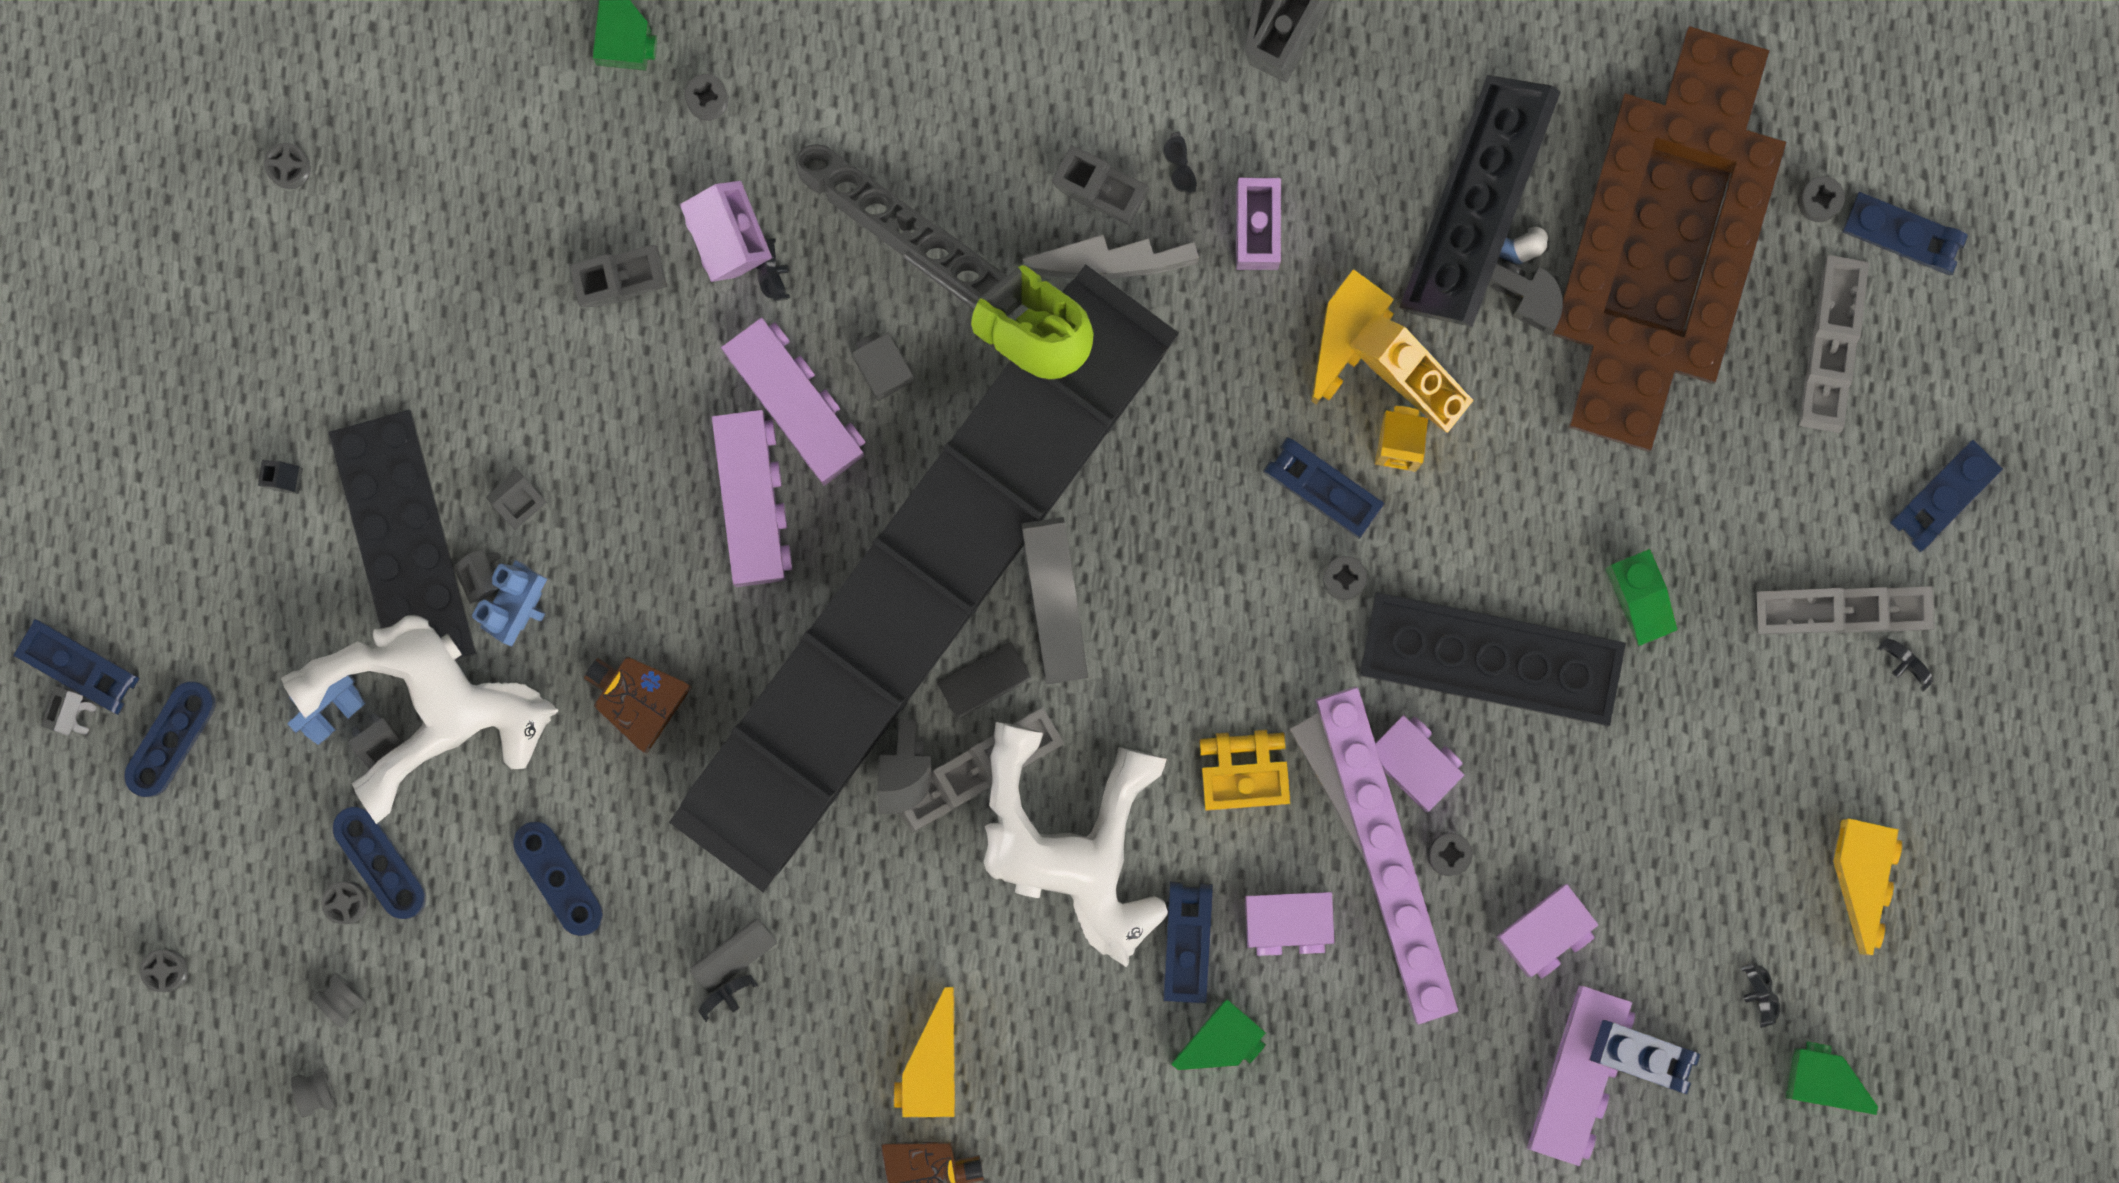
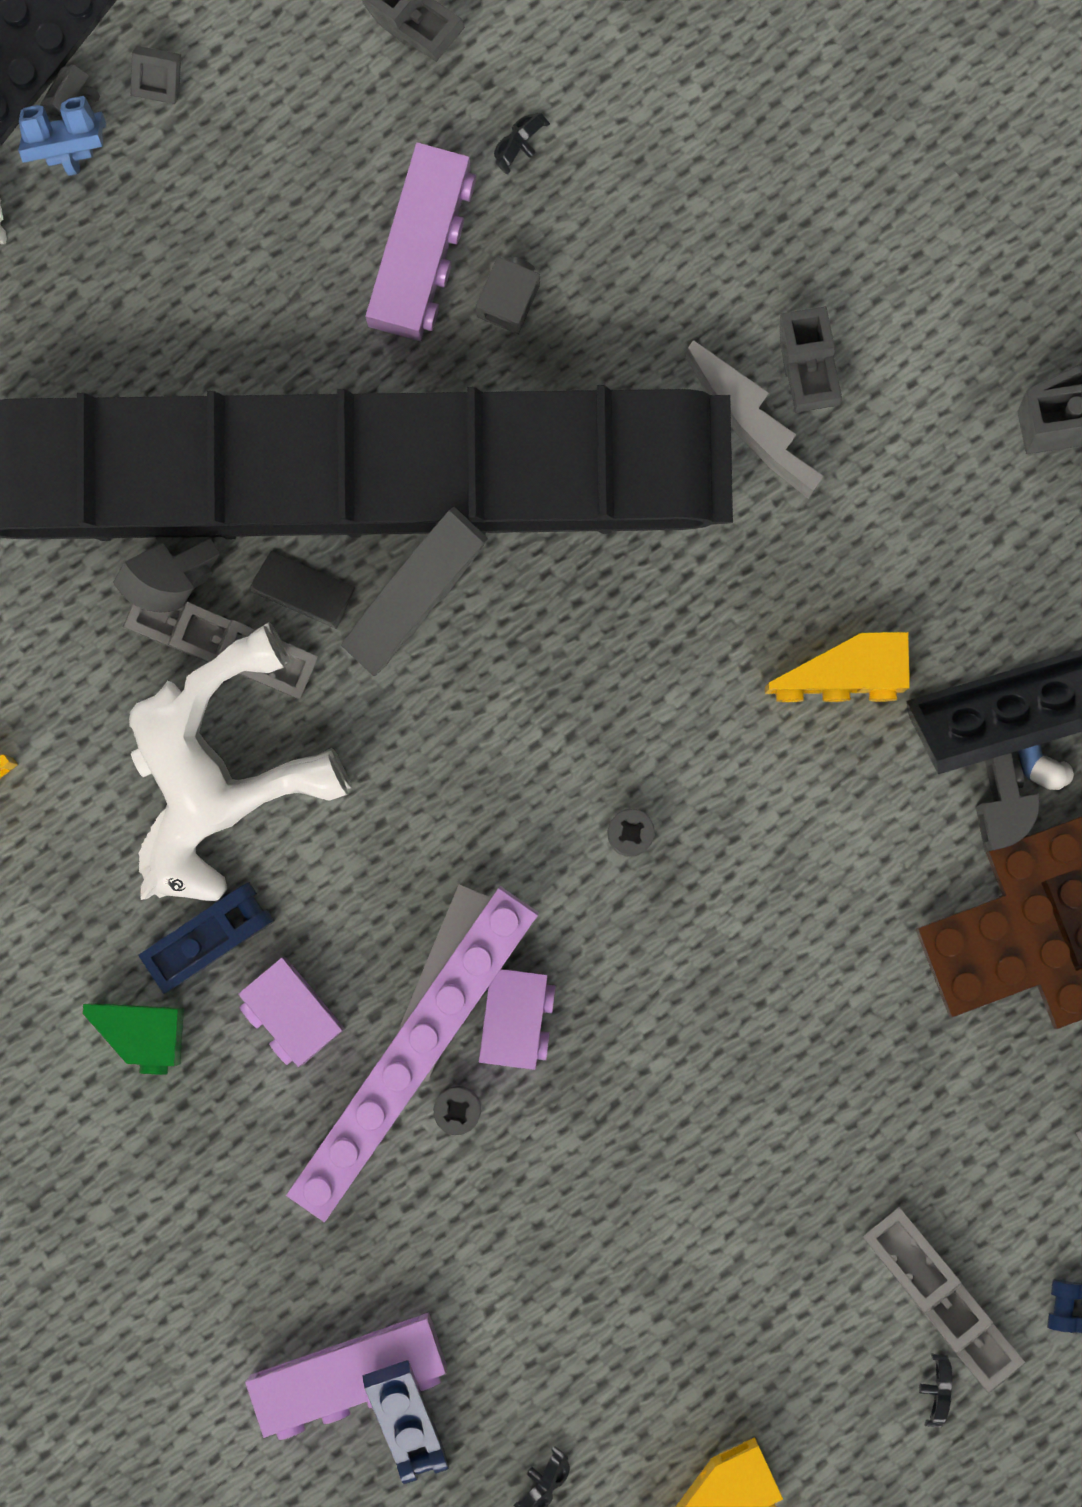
camera: 55 degrees right, 0 degrees up
(637, 699) = (59, 305): reddish brown torso -> none
(725, 231) = (522, 72): lavender brick -> none
(749, 498) = (306, 269): lavender brick -> none
(1044, 340) = (626, 398): piece -> none
(1176, 152) = (890, 406): black piece -> none
(1244, 784) = (381, 881): yellow plate -> none
(1258, 223) = (883, 520): lavender brick -> none
(1325, 488) = (696, 756): dark blue plate -> none
(1402, 439) = (791, 789): yellow slope -> none
(1411, 371) = (857, 752): yellow slope -> none
(1492, 659) = (659, 1017): black plate -> none
(1548, 931) = (453, 1250): lavender brick -> none
(1643, 597) = (816, 1109): green slope -> none

